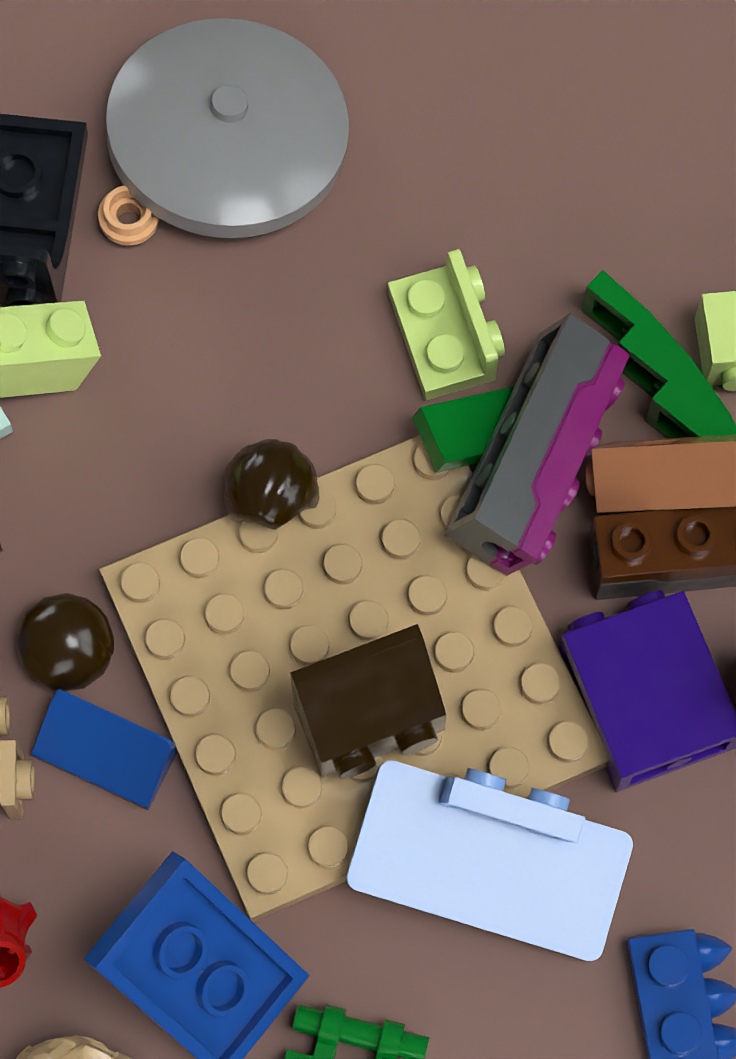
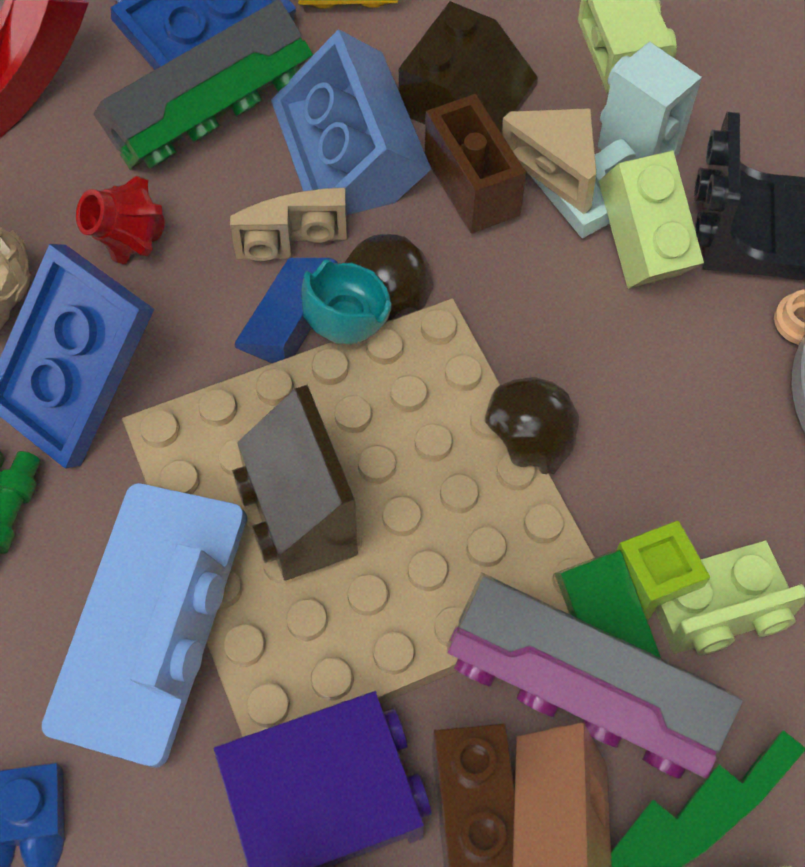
camera: 90 degrees right, 10 degrees down
(127, 670) = (344, 302): none -> teal hair
(428, 374) = (663, 565): none -> lime panel

